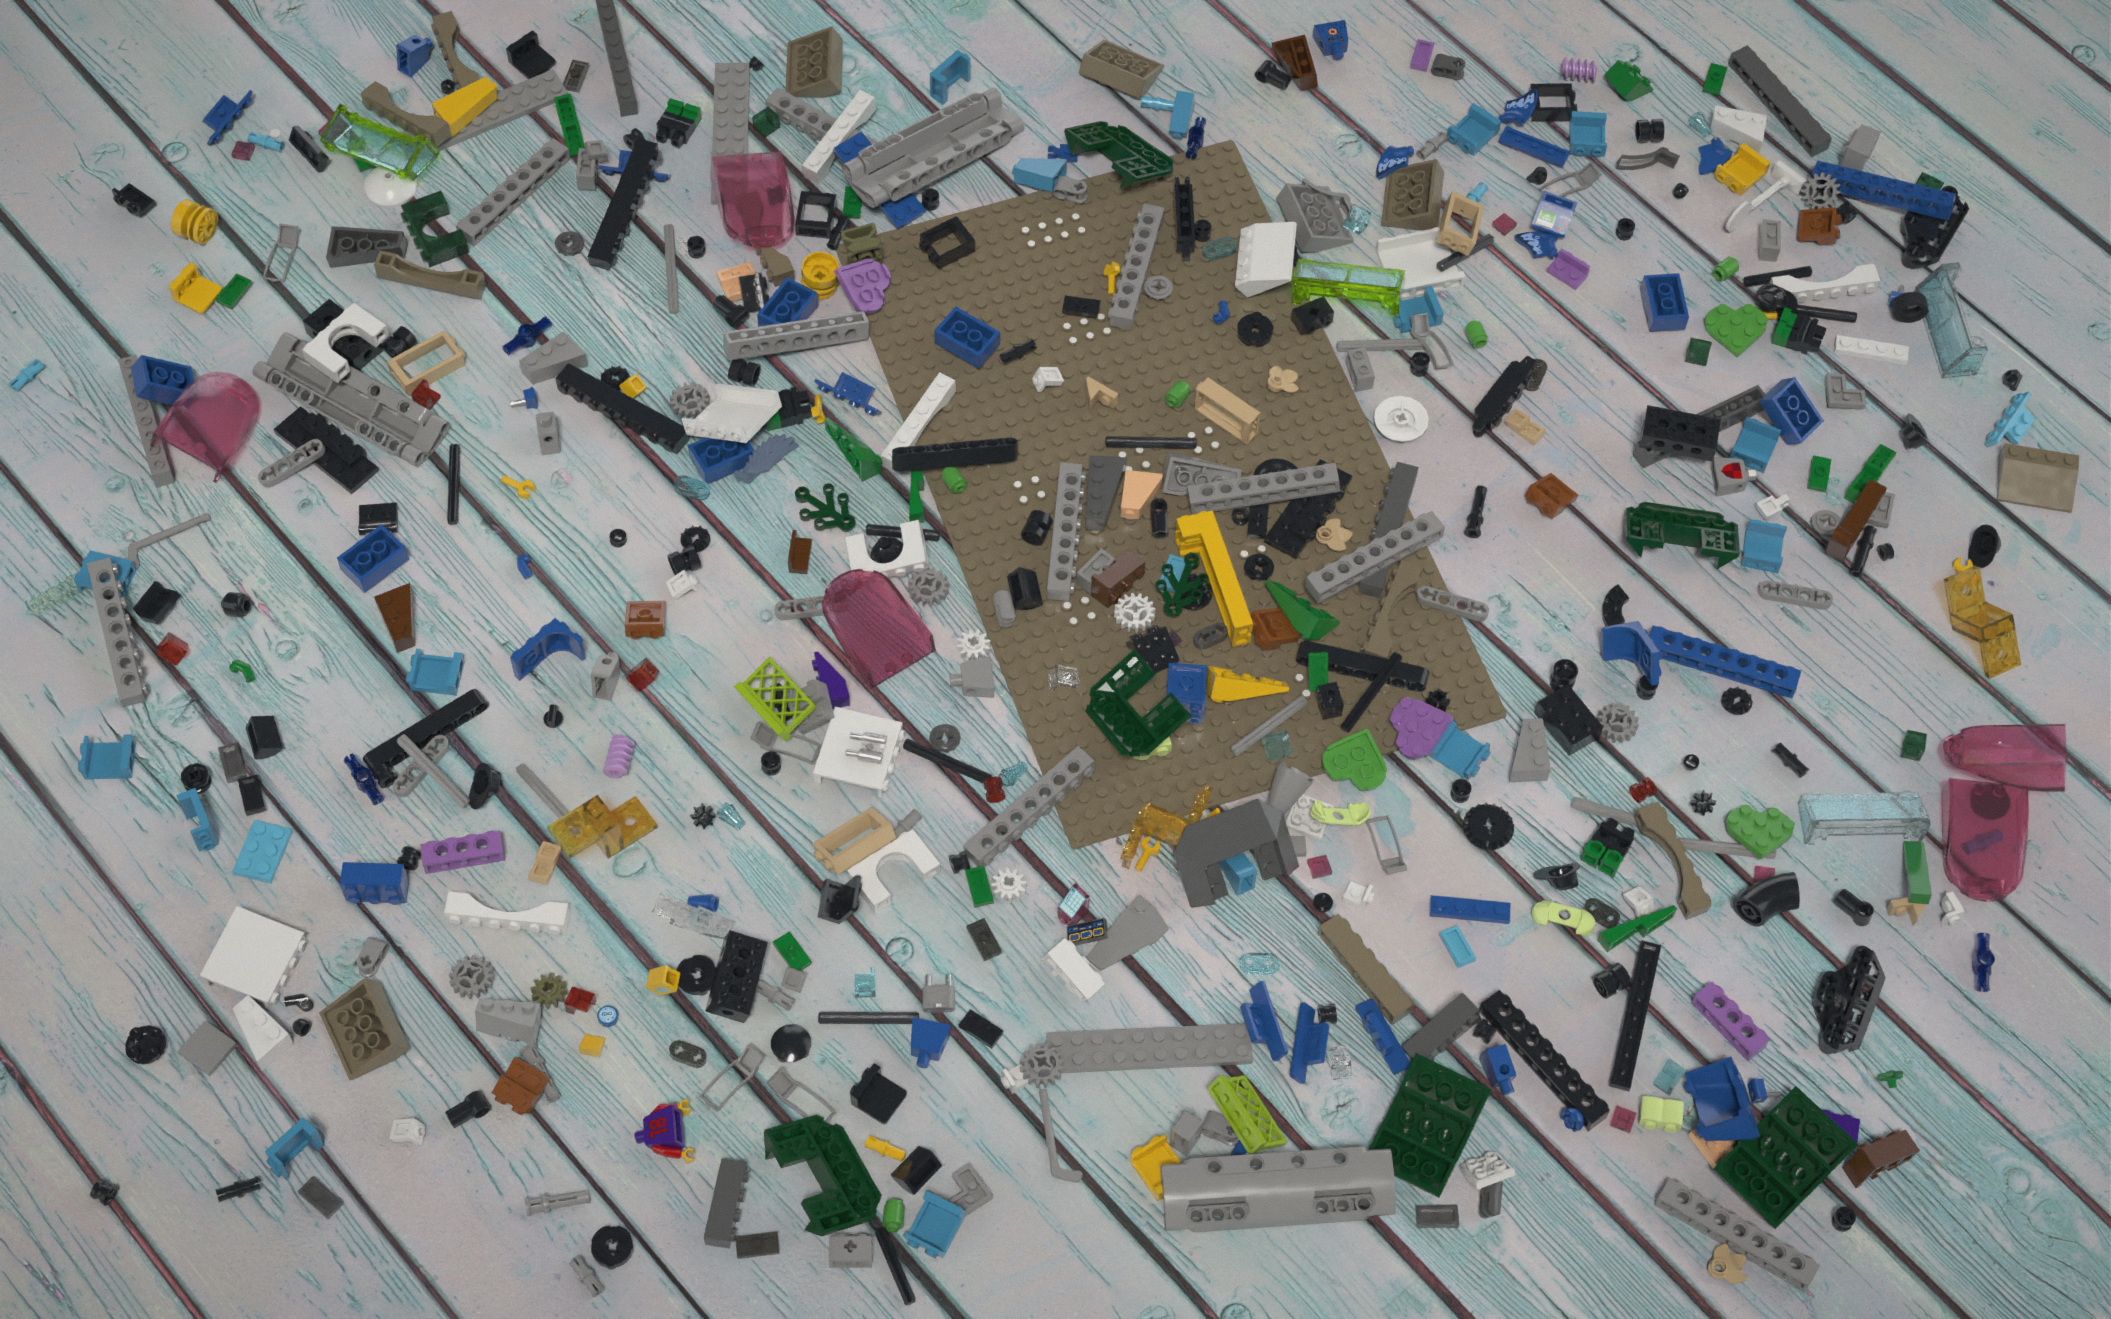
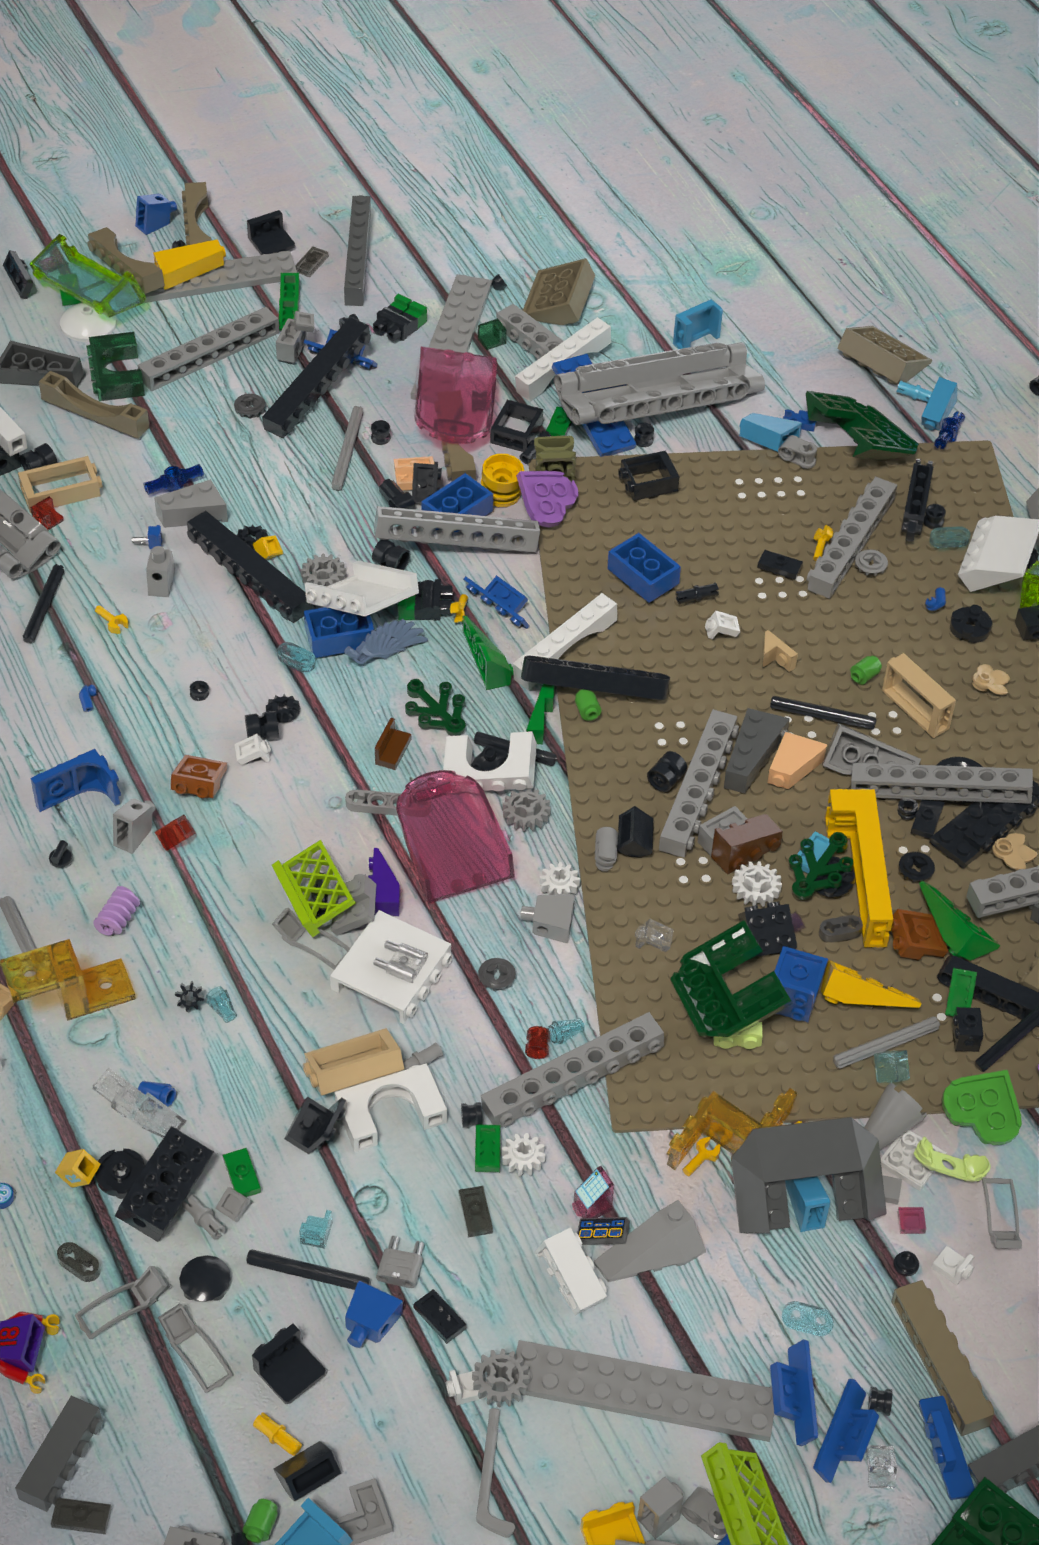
camera: 15 degrees right, 10 degrees down
(767, 760) = (282, 956): black wheel -> none
(847, 1186) = (212, 1444): dark green slope -> none
(945, 760) = (489, 998): black axle -> none
(1159, 519) = (811, 790): black piece -> none

